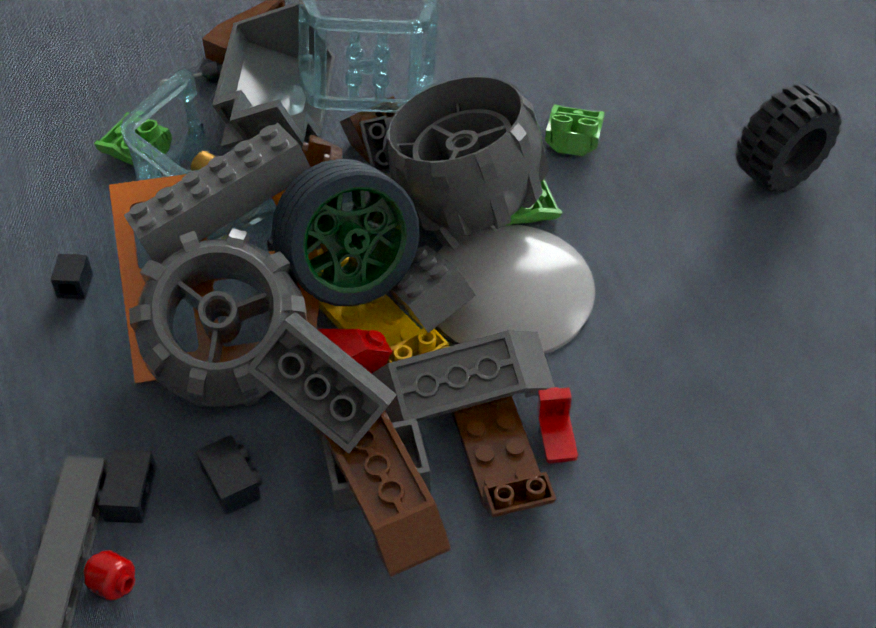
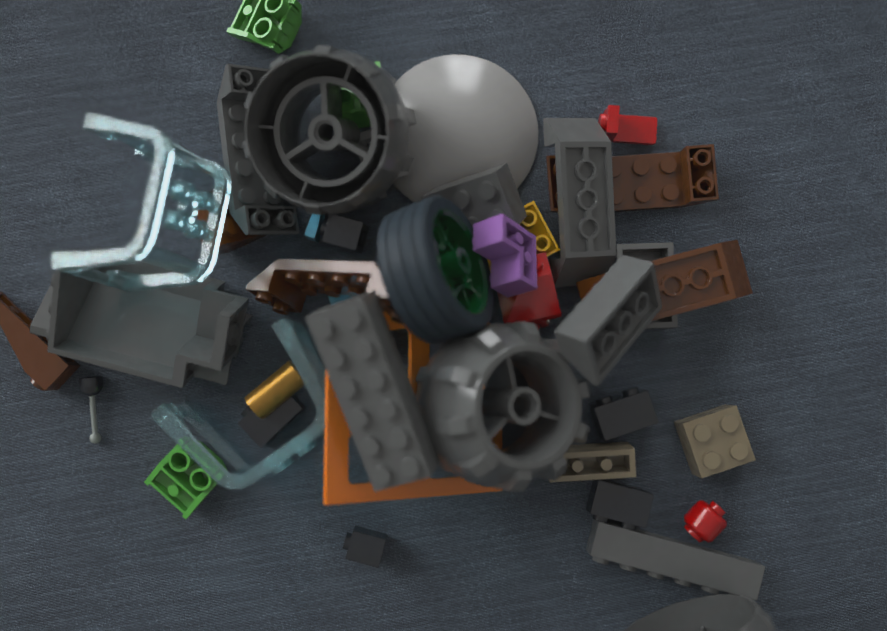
camera: 85 degrees left, 35 degrees up
(171, 444) = (599, 462): none -> dark tan brick
(207, 568) = (714, 440): none -> dark tan brick
(385, 307) = (510, 252): none -> medium lavender brick

